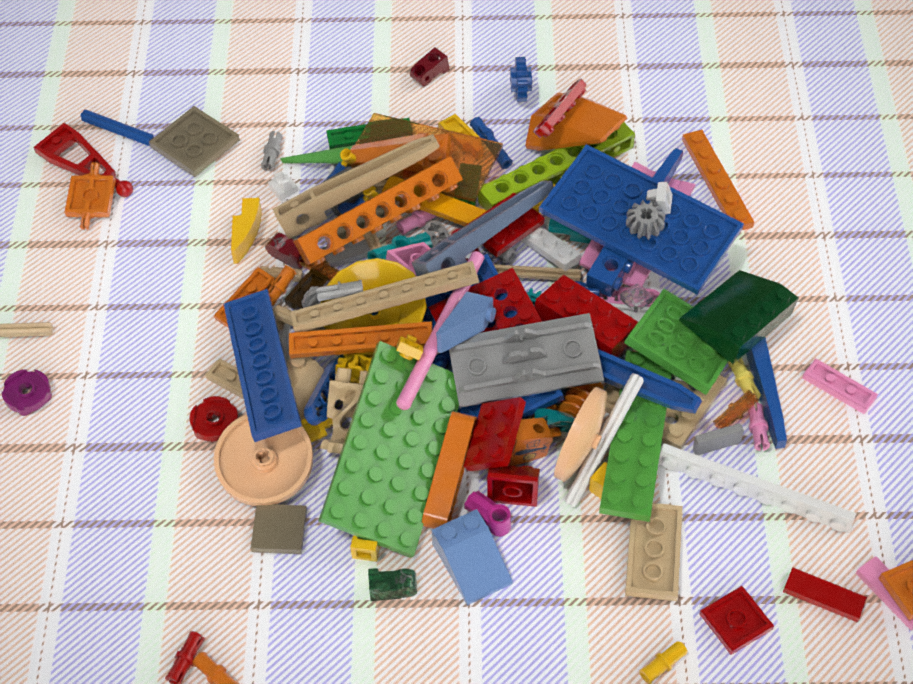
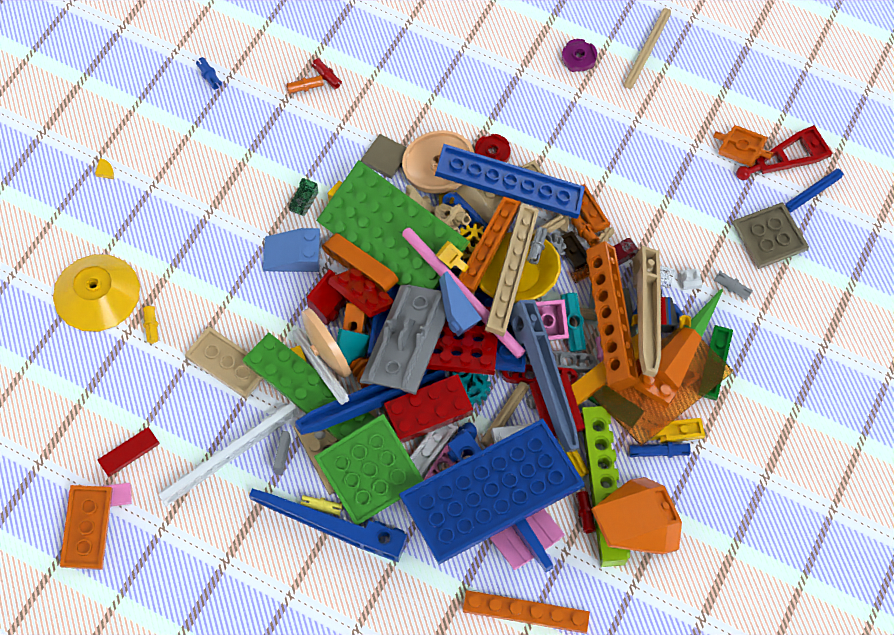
camera: 115 degrees right, 10 degrees up
(245, 228) = (655, 232): yellow slope -> none
(429, 67) = (772, 444): dark red leg -> none
(490, 512) = (314, 274): dark pink piece -> none
(521, 79) = (714, 501): blue gear -> none
(564, 104) = (650, 502): plate -> none
(636, 297) = (433, 465): clear plate -> none
(645, 220) = (478, 489): light grey gear -> none
(661, 196) = (491, 504): white tile -> none
(736, 410) = (295, 478): clear orange pin -> none
(736, 620) = (149, 386): red tile -> none
(740, 313) = (368, 520): dark green slope -> none
(758, 427) = (275, 488): bright pink pin -> none
(840, 386) = (275, 574): bright pink tile -> none

